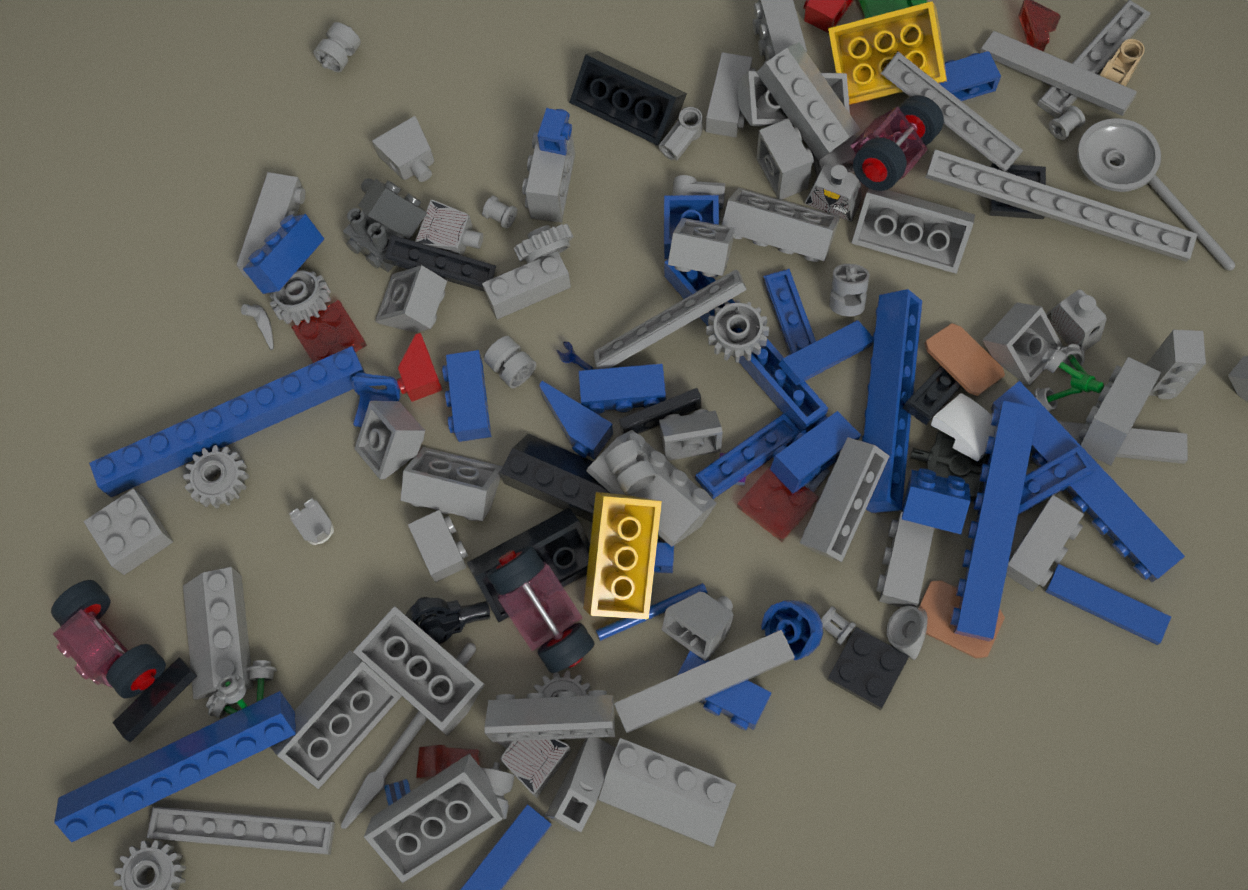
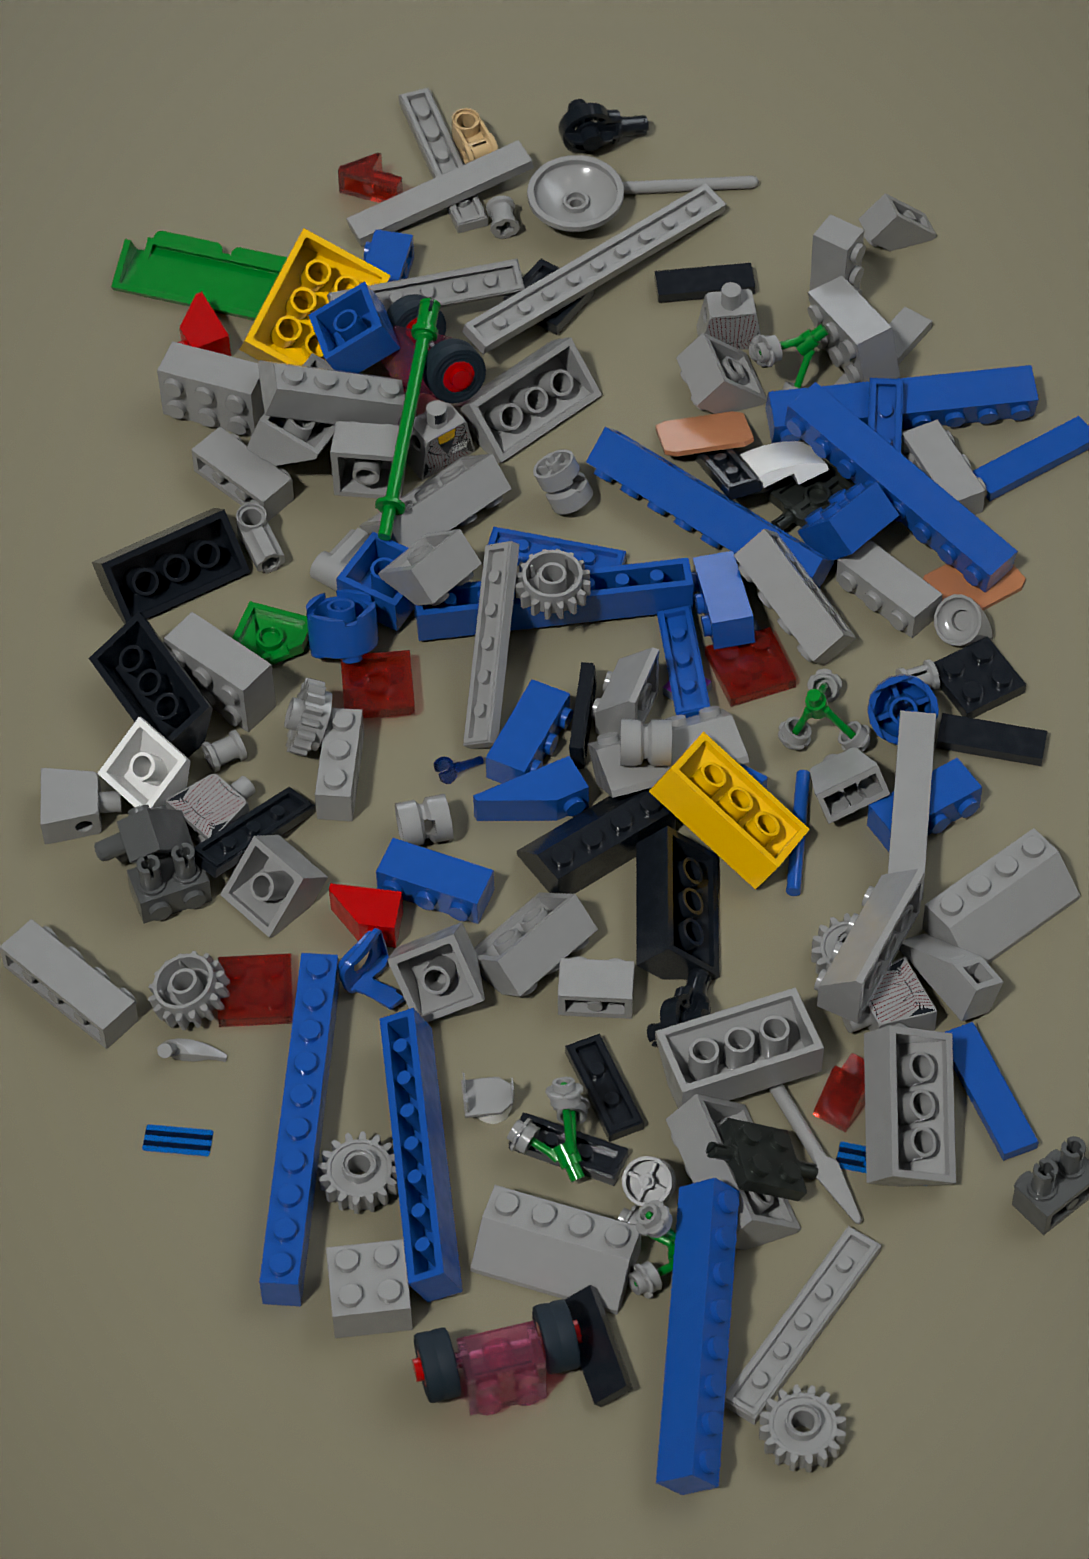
camera: 65 degrees left, 15 degrees down
(197, 356) = (177, 1140): none -> clear blue sticker
(239, 507) = (420, 1156): none -> blue brick
(283, 253) = (128, 971): blue brick -> none
(289, 666) = (648, 1180): none -> light grey wheel
(300, 575) = (571, 1111): none -> plant
(305, 598) = (600, 1158): none -> black tile
(338, 735) = (762, 1159): none -> pearl dark grey plate
(366, 594) = (604, 1087): none -> black tile
(441, 174) = (146, 767): none -> white slope
(506, 142) = (153, 684): none -> black slope
(540, 609) = (742, 909): brick -> none
(554, 131) = (197, 622): blue brick -> none
(607, 185) = (272, 632): none -> green plate
(609, 272) = (379, 684): none -> clear red plate
(632, 222) = (342, 625): none -> blue brick
(735, 565) = (823, 688): none -> light grey plant
(817, 708) = (991, 739): none -> black tile
(826, 352) = (621, 533): blue tile -> none
(873, 85) = (354, 330): none -> blue brick
(888, 126) = (424, 333): none -> green bar
(1108, 284) = (698, 281): none -> black tile
(1194, 134) = (584, 135): none -> black pin

